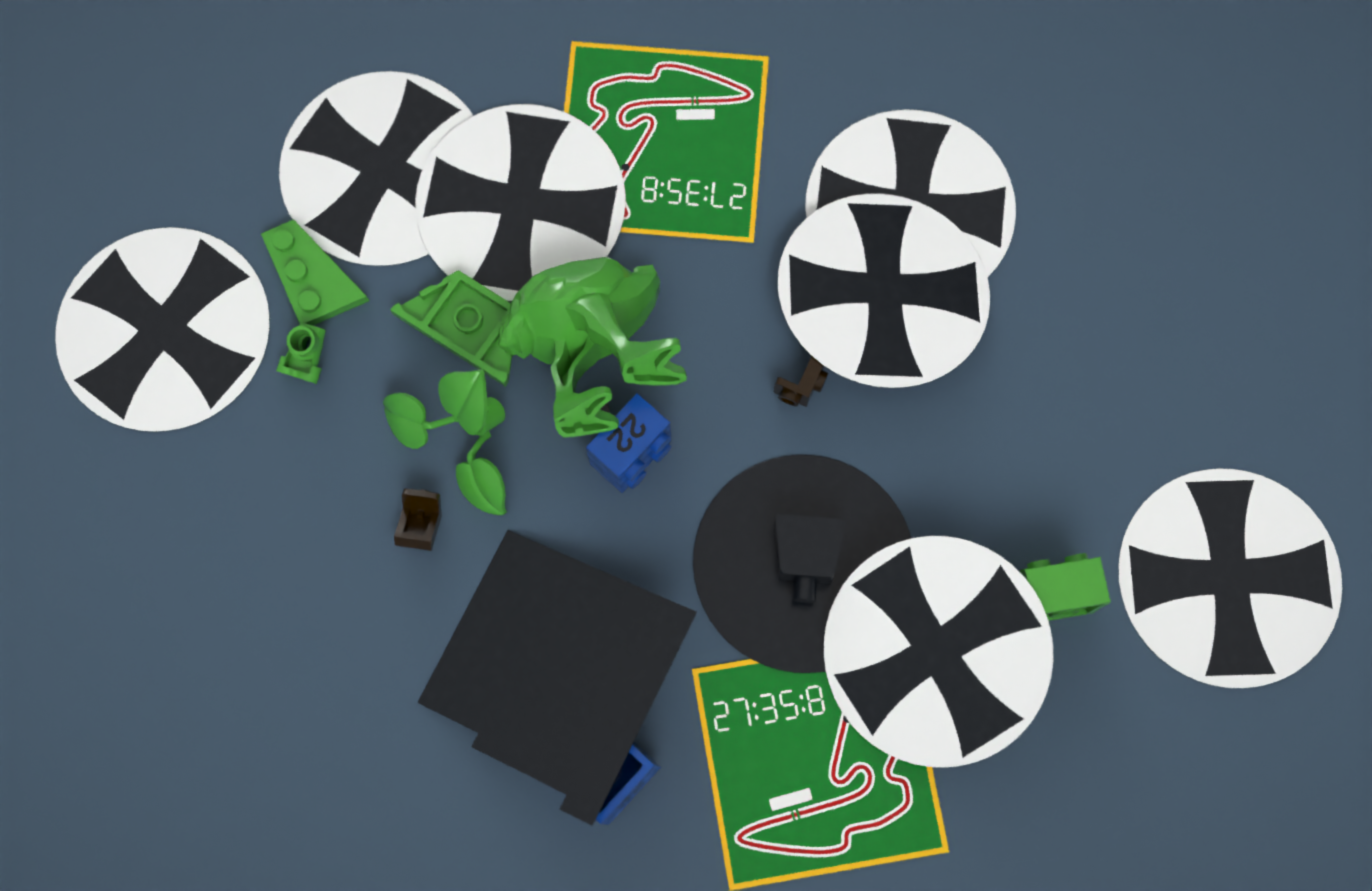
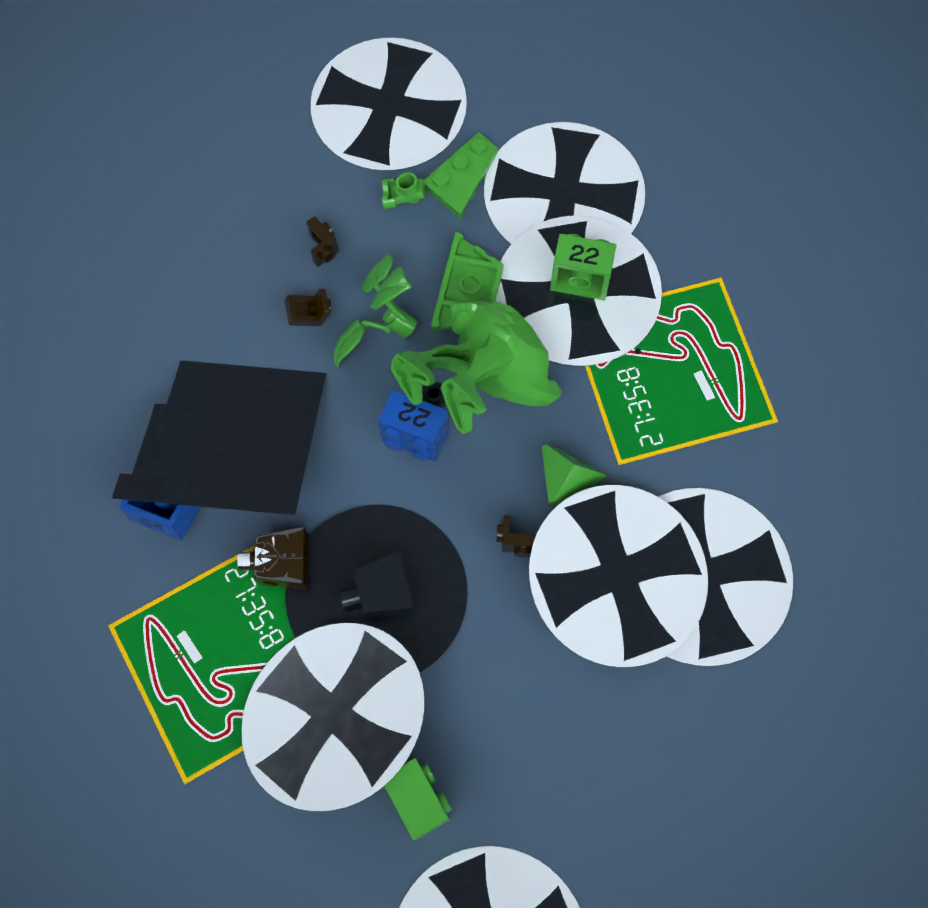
camera: 70 degrees right, 5 degrees down
(326, 468) = (324, 237): none -> dark brown bracket
(506, 179) = (582, 266): none -> bright green brick
(730, 656) = (279, 559): none -> dark brown torso
(748, 299) = (567, 474): none -> bright green slope

